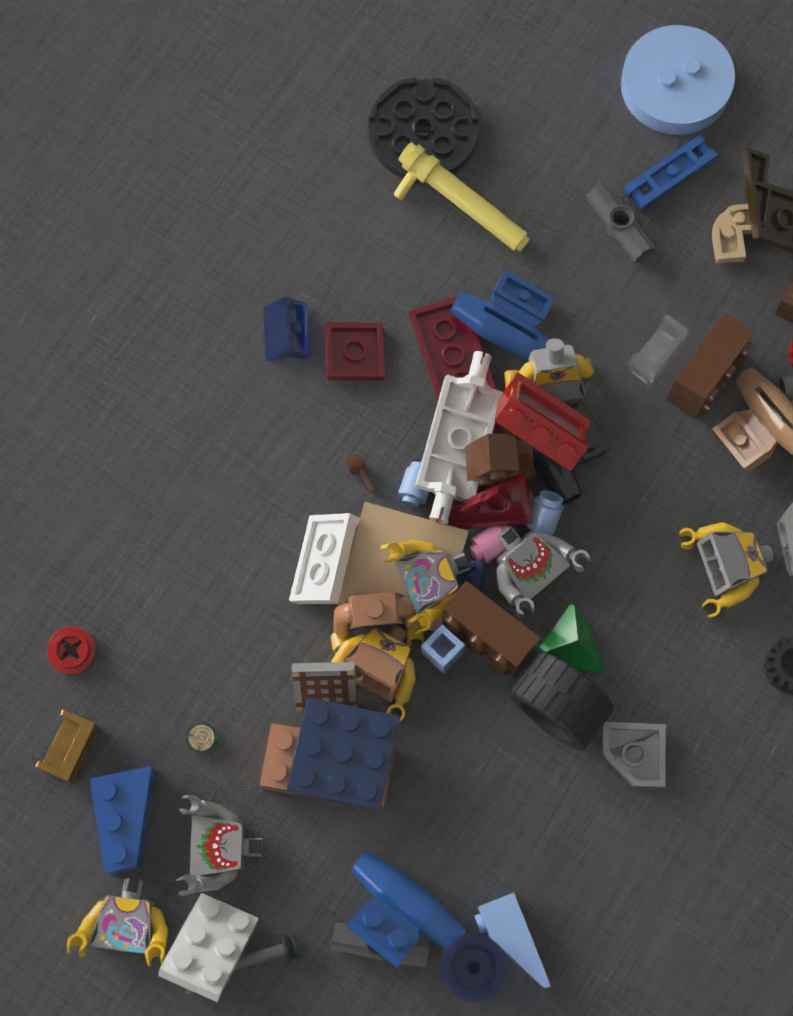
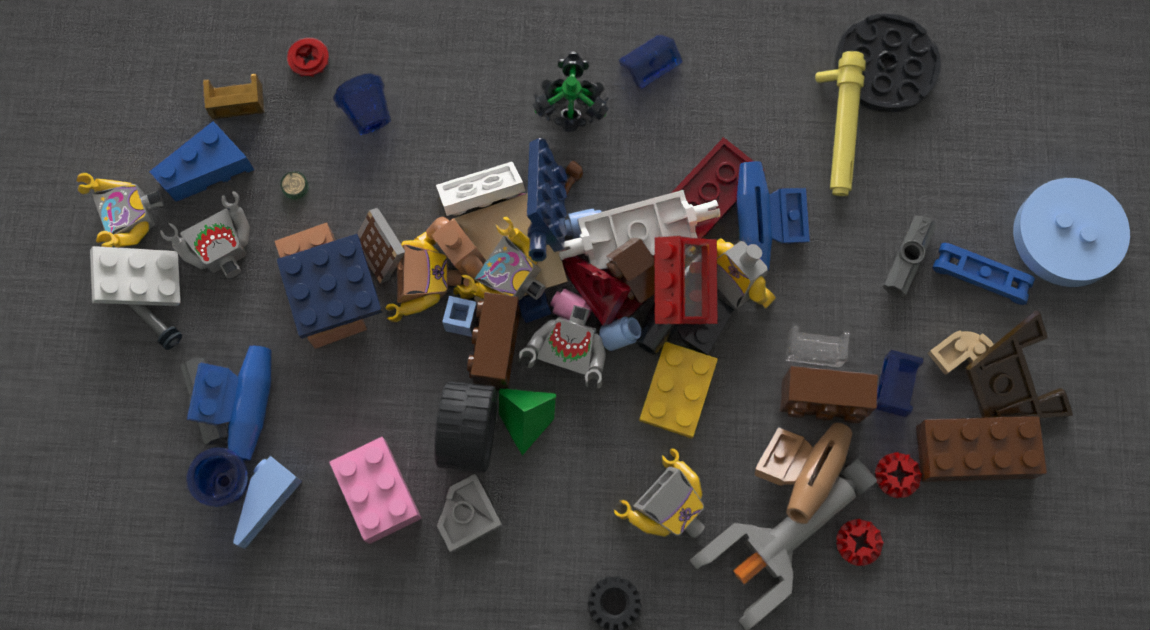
camera: 55 degrees right, 0 degrees up
(164, 620) = (364, 102): none -> clear blue piece
(281, 413) = (571, 89): none -> black plant
(354, 351) = (665, 117): dark red plate -> none
(417, 513) = (545, 201): none -> dark blue plate
(567, 824) = (375, 490): none -> bright pink brick
(626, 494) = (678, 390): none -> yellow plate
(721, 297) = (897, 383): none -> clear blue panel

